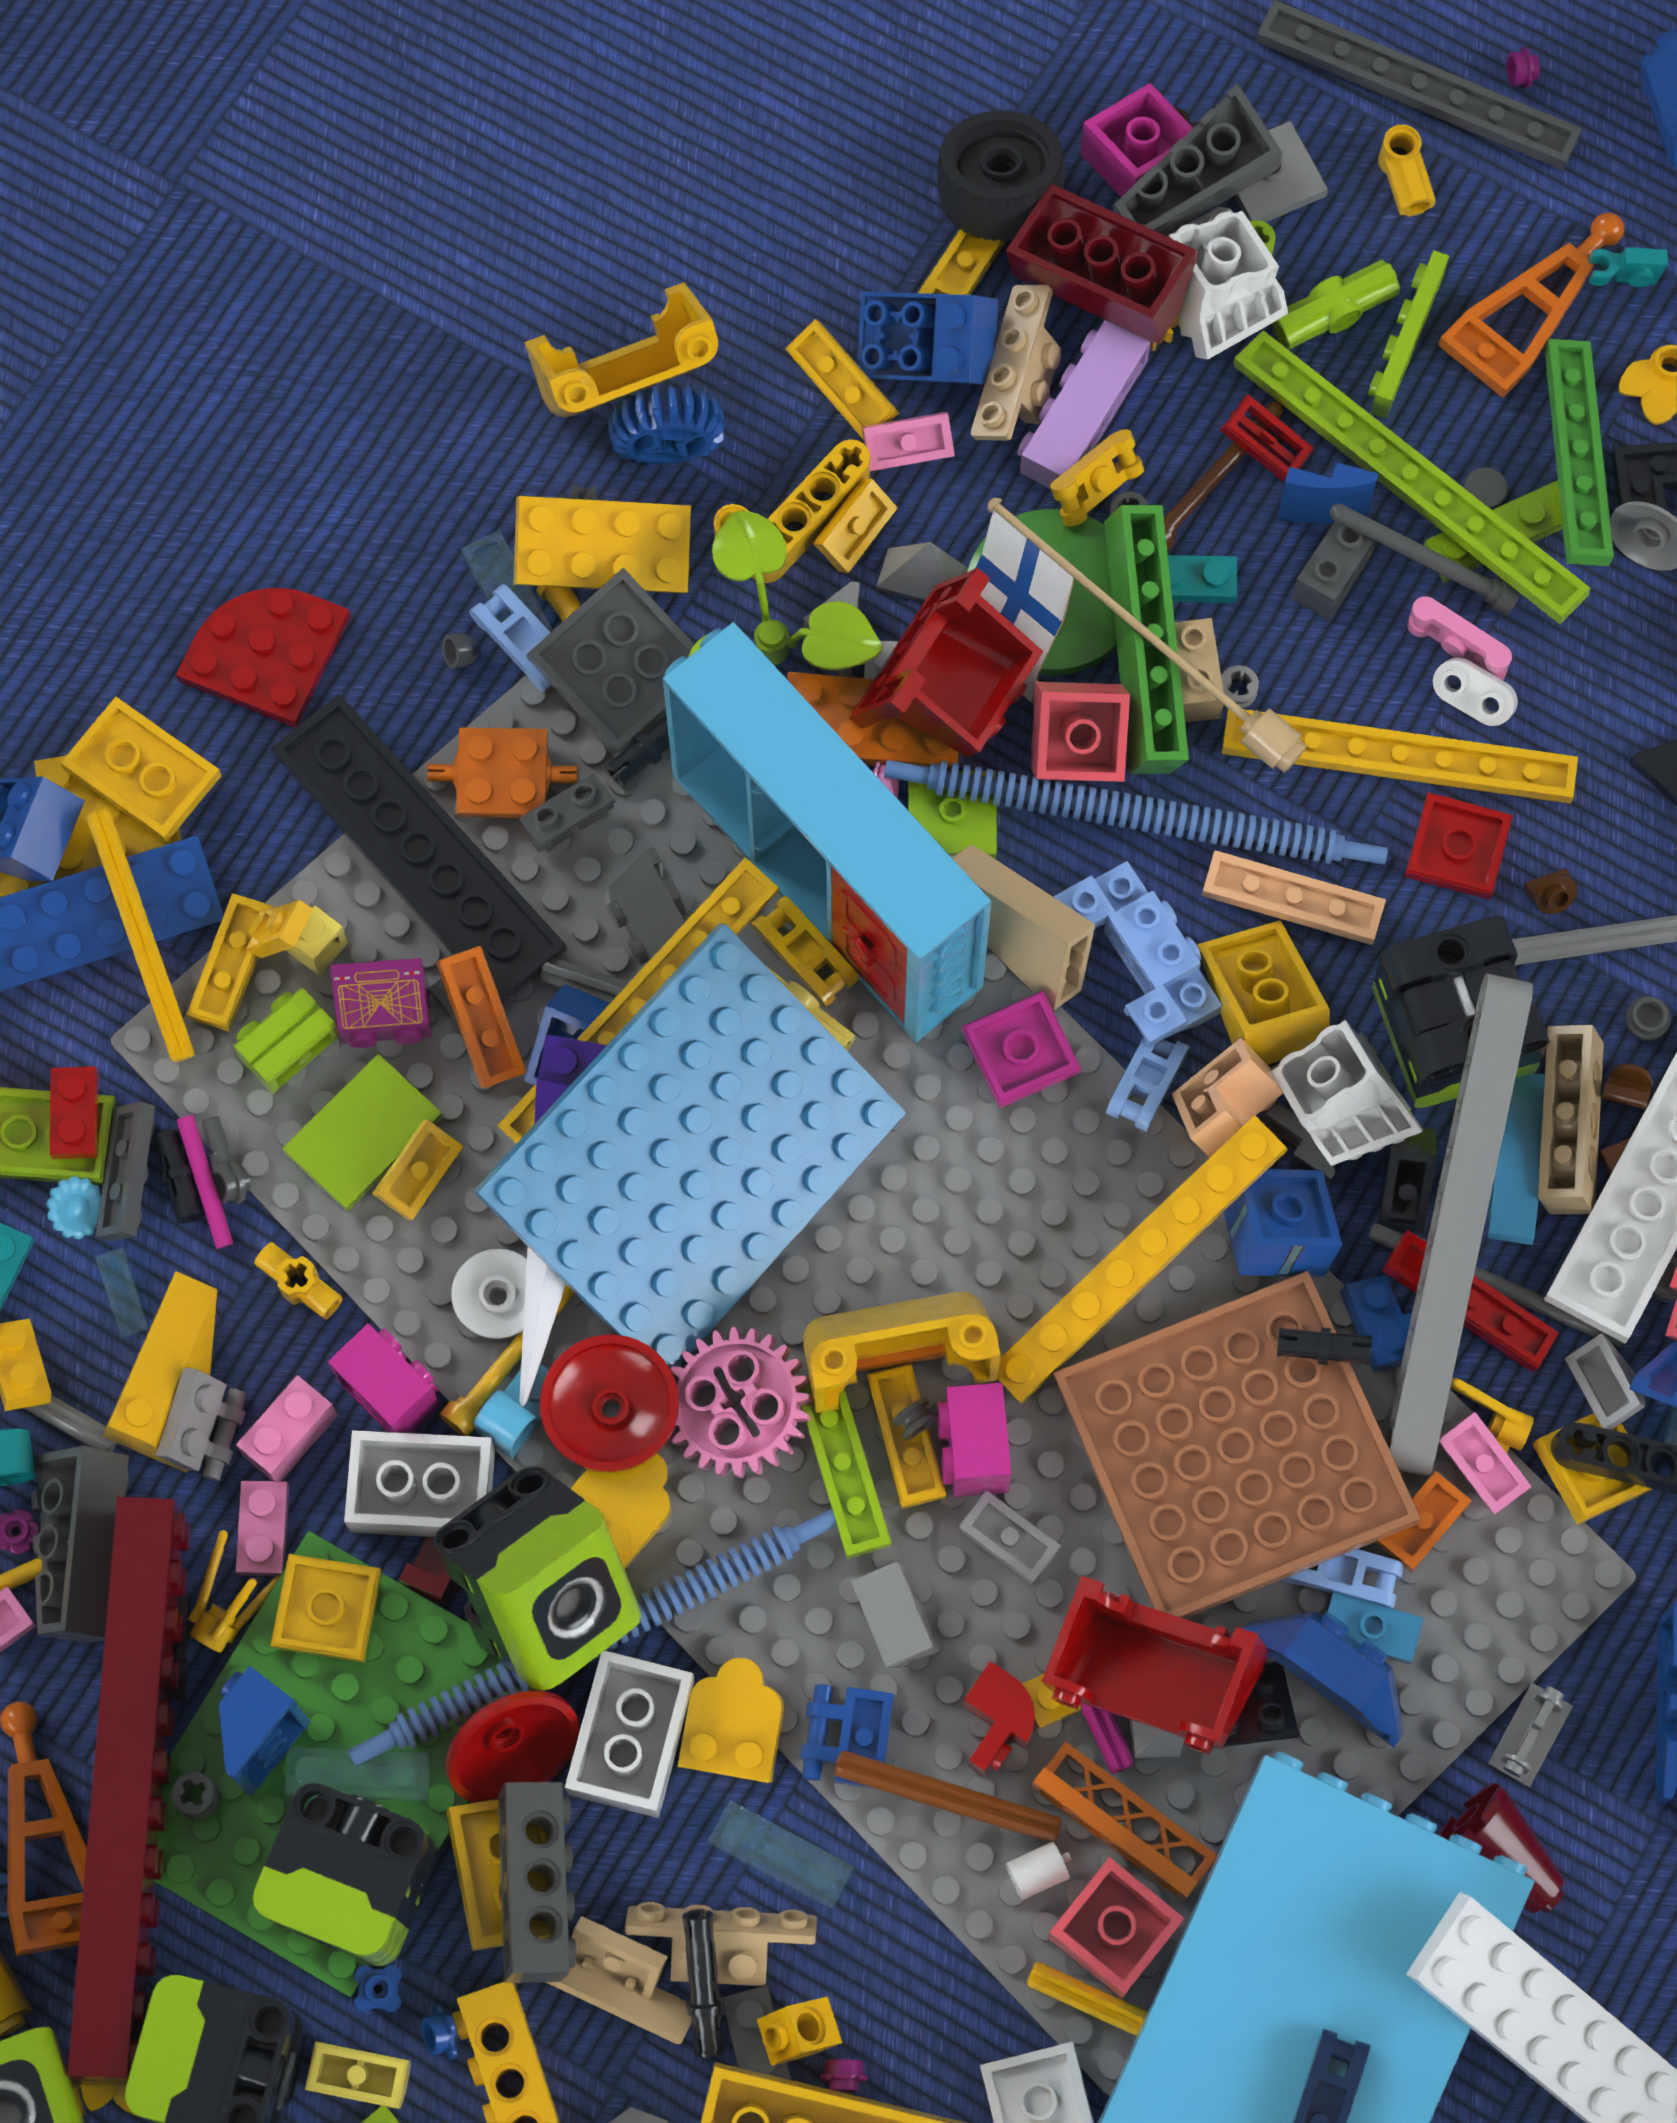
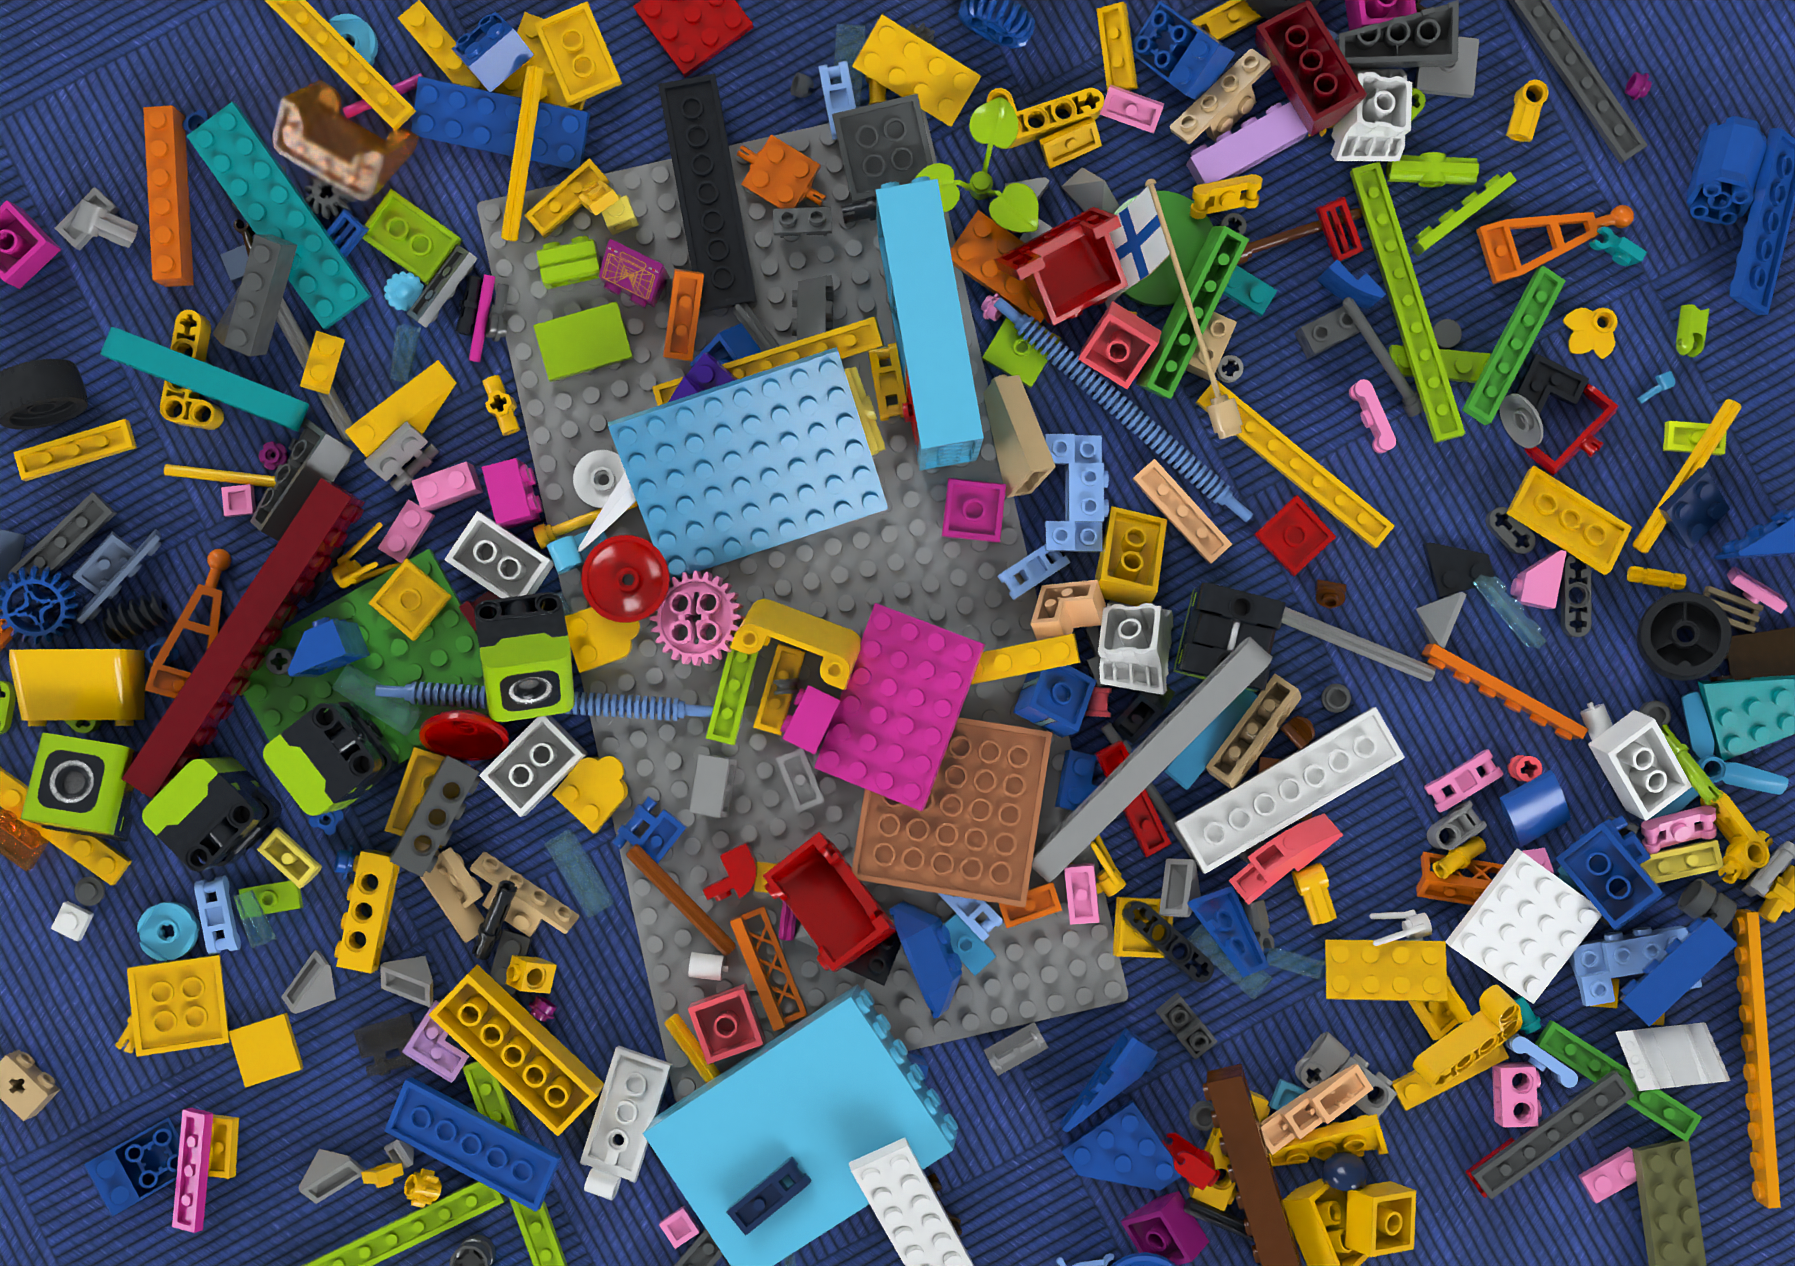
camera: 30 degrees right, 15 degrees up
(74, 1112) = (431, 235): red plate -> none
(417, 1170) = (599, 382): yellow plate -> none
(1086, 1353) = (899, 706): none -> dark pink plate
(1324, 1346) = (1033, 781): black pin -> none
(1345, 1205) = (1099, 703): none -> coral bush
(1475, 688) = (1363, 451): white plate -> none
(1502, 1830) = (961, 1097): dark red cone -> none

